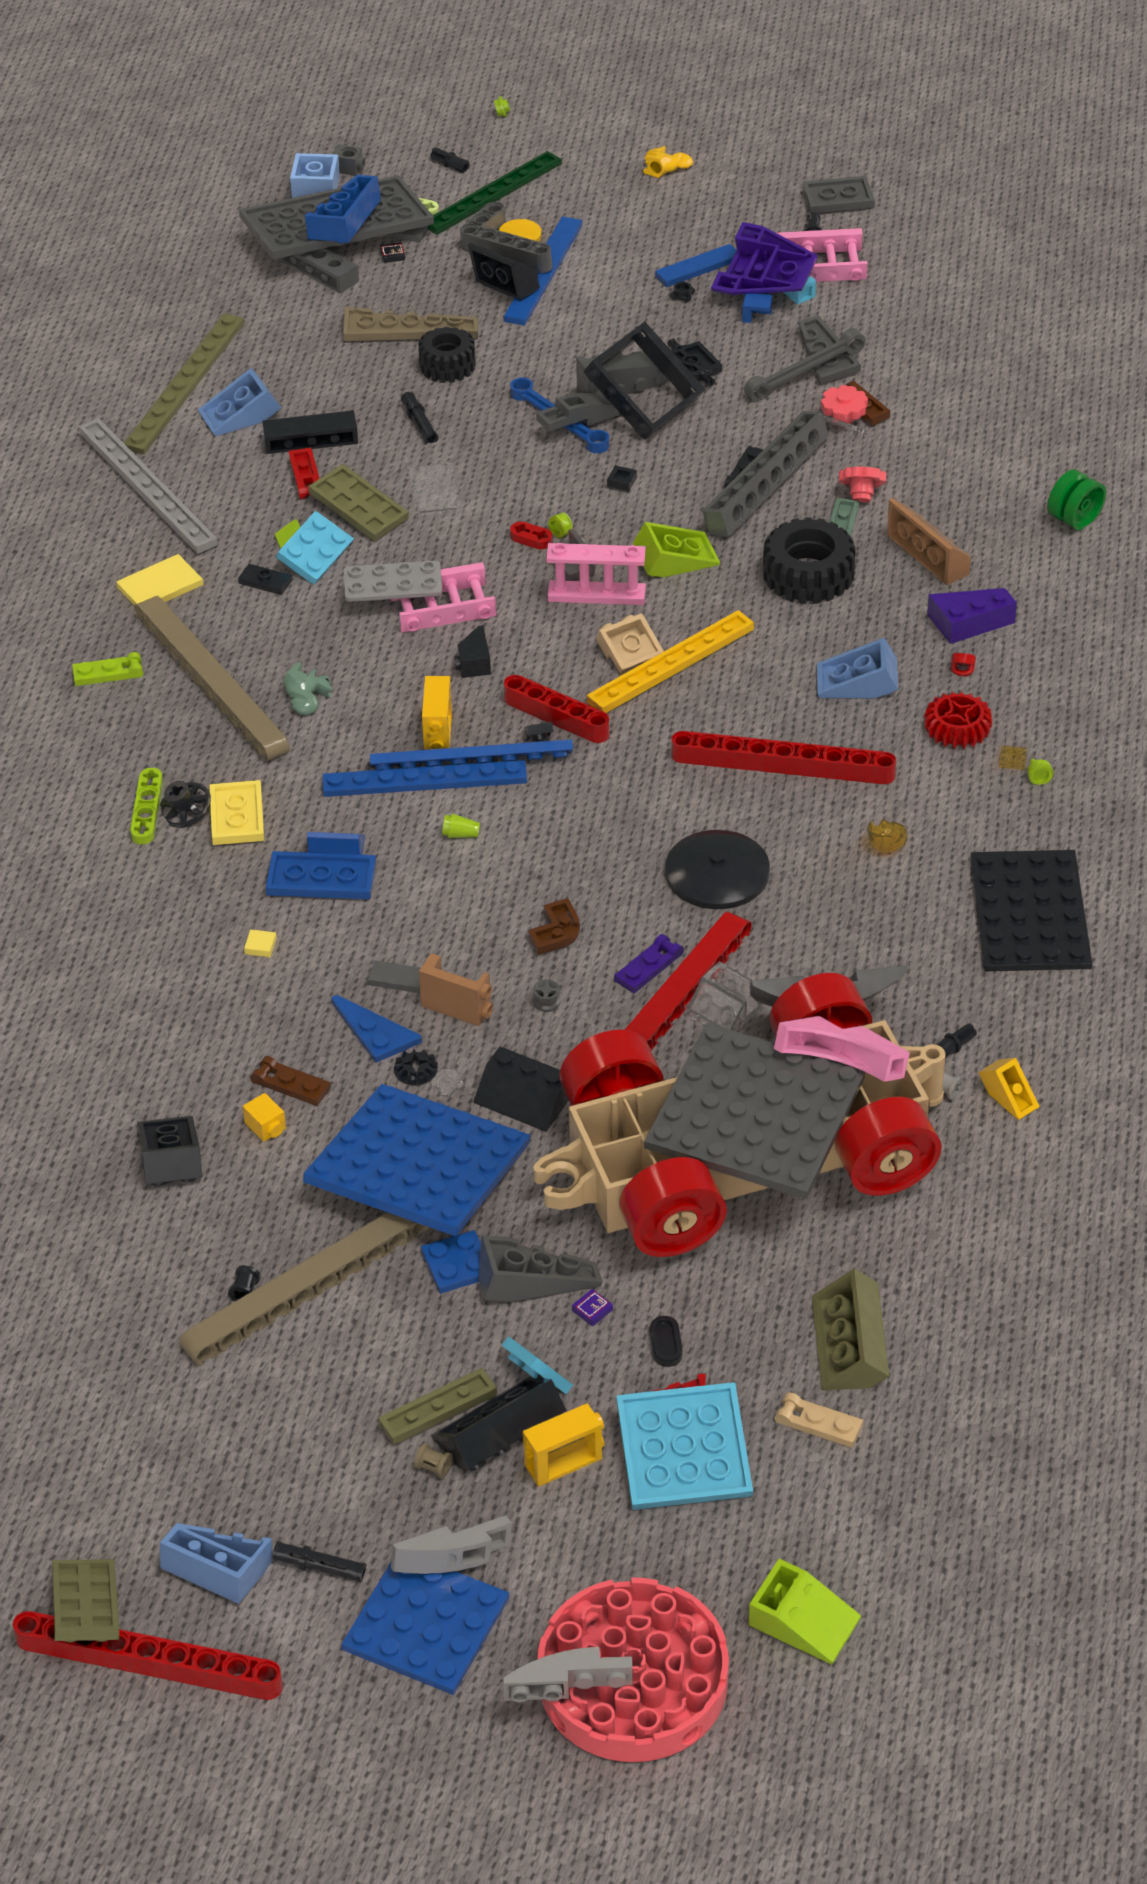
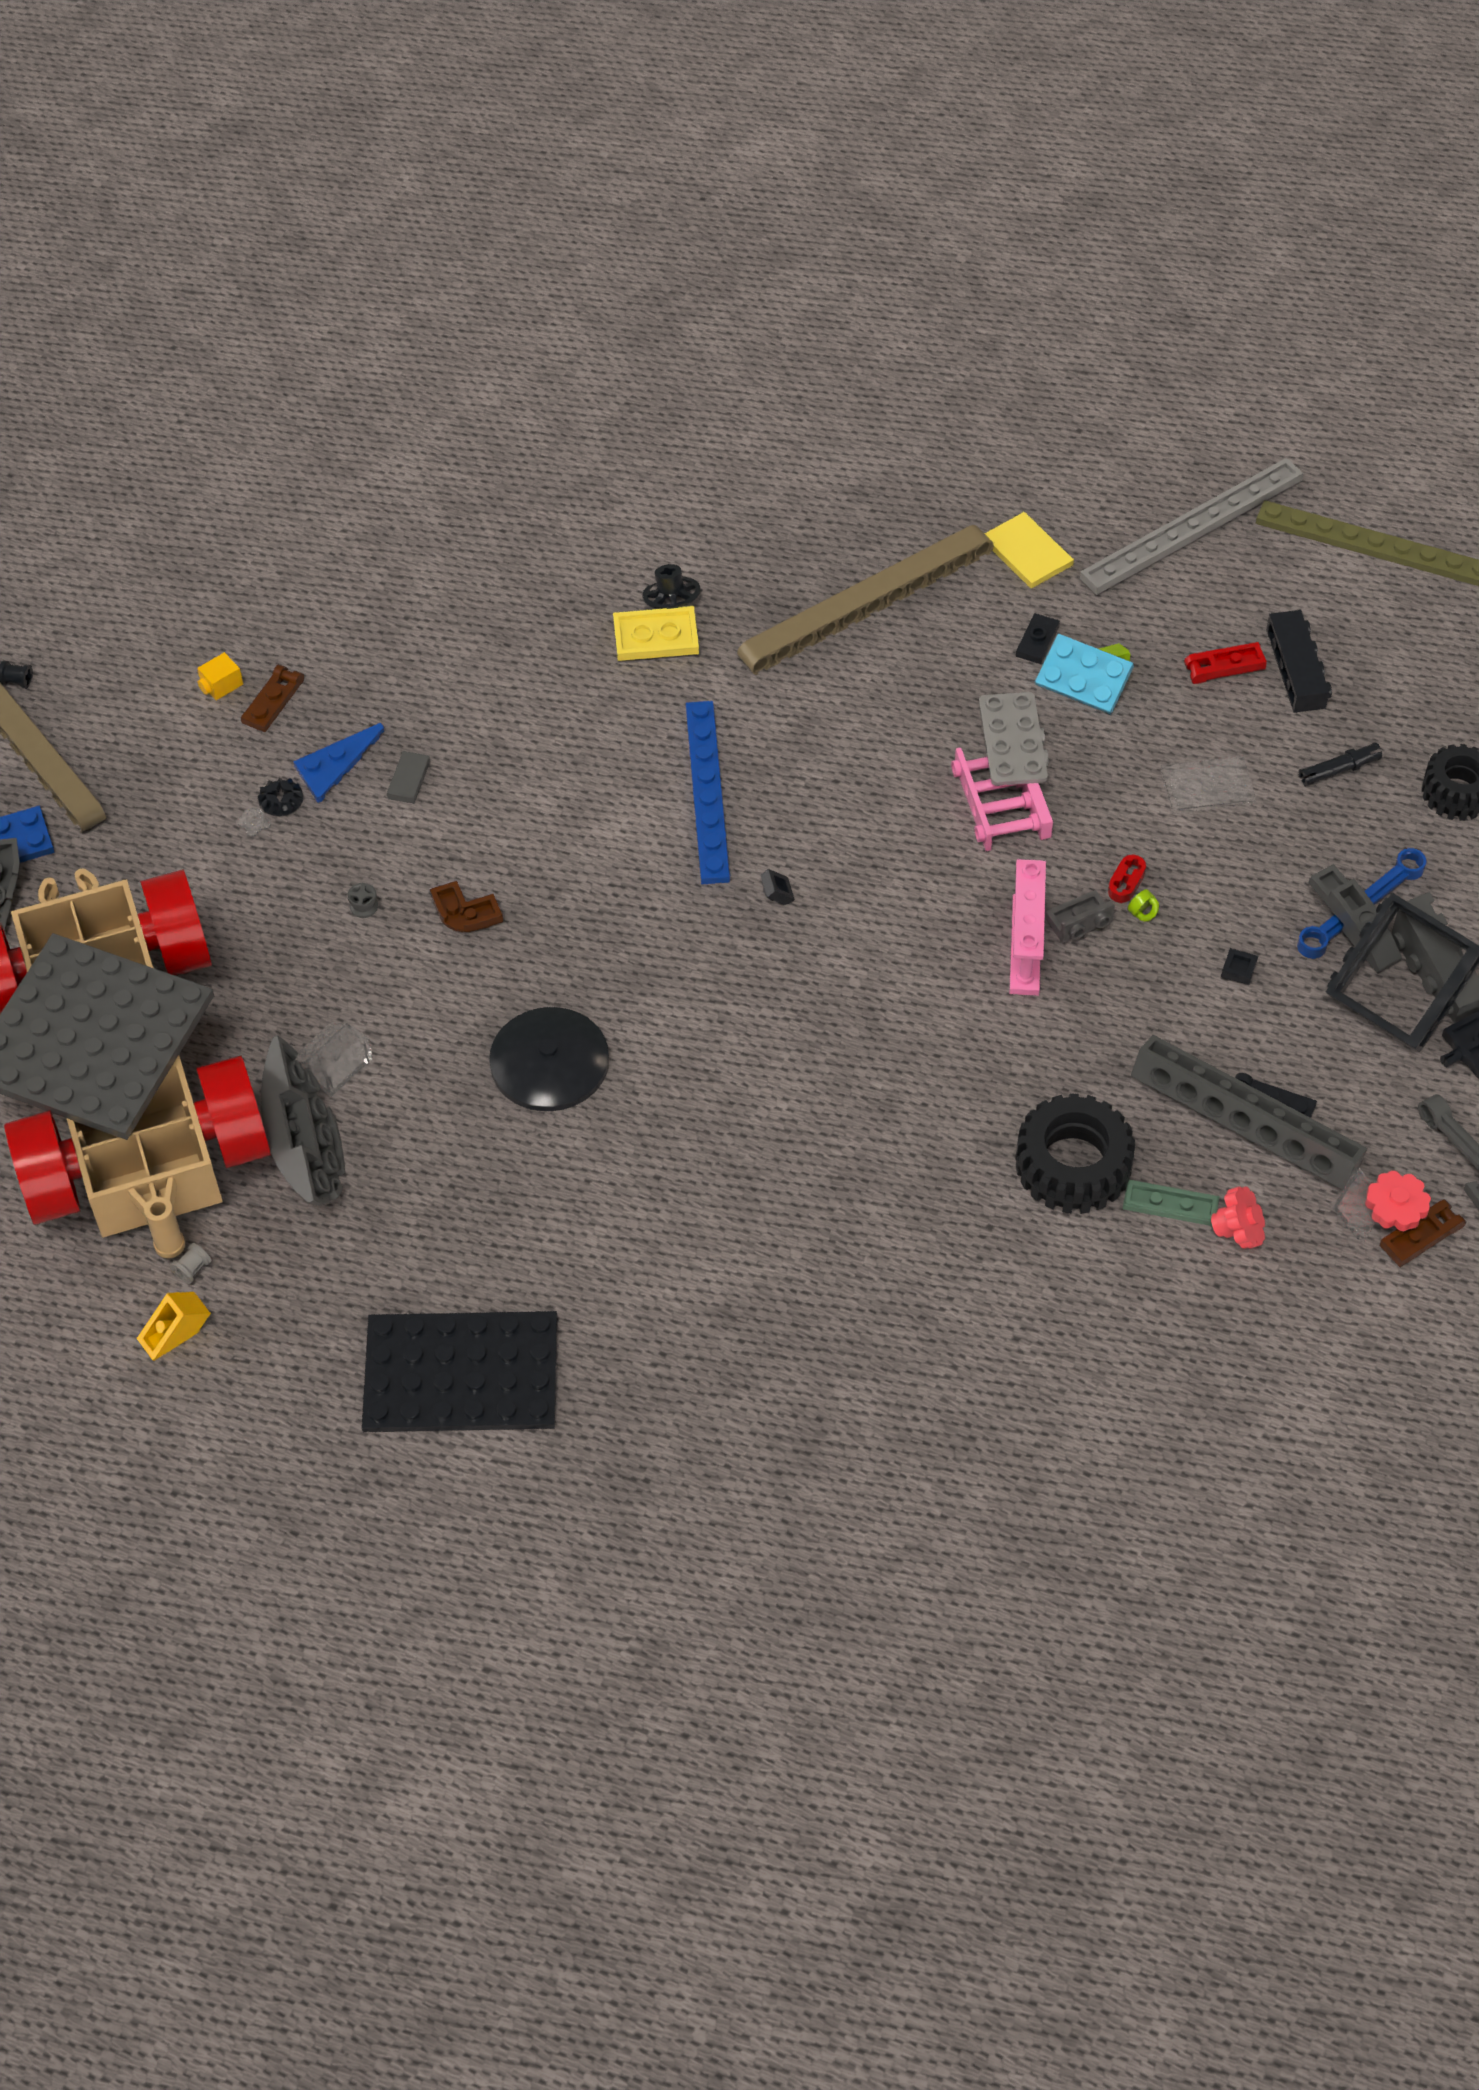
camera: 90 degrees right, 10 degrees up
(108, 670) = (883, 517): lime plate -> none
(146, 806) = (672, 557): lime beam -> none
(169, 1150) = (191, 607): black slope -> none
(239, 405) = (1343, 597): medium blue slope -> none
(260, 943) = (466, 665): light yellow tile -> none
(303, 687) = (849, 675): sand green animal -> none
(321, 875) = (557, 707): blue plate -> none
(335, 843) = (603, 714): blue slope -> none
(358, 502) = (1168, 709): olive plate -> none
(417, 1159) = (138, 791): blue plate -> none
(437, 712) = (785, 772): yellow window -> none
(454, 994) = (365, 796): medium nougat panel -> none
(459, 827) = (624, 819): lime cone -> none
(473, 655) = (906, 825): black slope -> none
(482, 754) = (738, 828): blue plate -> none
(521, 1089) = (234, 882): black slope -> none
(556, 708) = (810, 902): red beam -> none
(628, 642) = (923, 971): tan plate -> none
(648, 964) = (405, 993): dark purple plate -> none
(670, 662) = (898, 1016): yellow plate -> none
(674, 550) = (1099, 1019): lime slope -> none
(679, 988) = (340, 1006): red beam -> none
(783, 757) = (722, 1133): red beam -> none
(850, 1046) = (151, 1118): bright pink arch -> none
(859, 673) = (873, 1207): medium blue slope -> none
(887, 836) = (583, 1212): clear yellow hair -> none
(926, 543) = (1121, 1287): medium nougat slope -> none
(953, 1042) = (253, 1275): black axle -> none
(958, 719) = (792, 1292): red gear -> none
(965, 660) = (898, 1322): red tile -> none
(971, 612) = (984, 1332): dark purple wedge -> none
(1013, 757) = (726, 1370): clear yellow tile -> none
(1040, 771) = (691, 1394): lime tile -> none
(1076, 499) = (1209, 1466): green wheel -> none

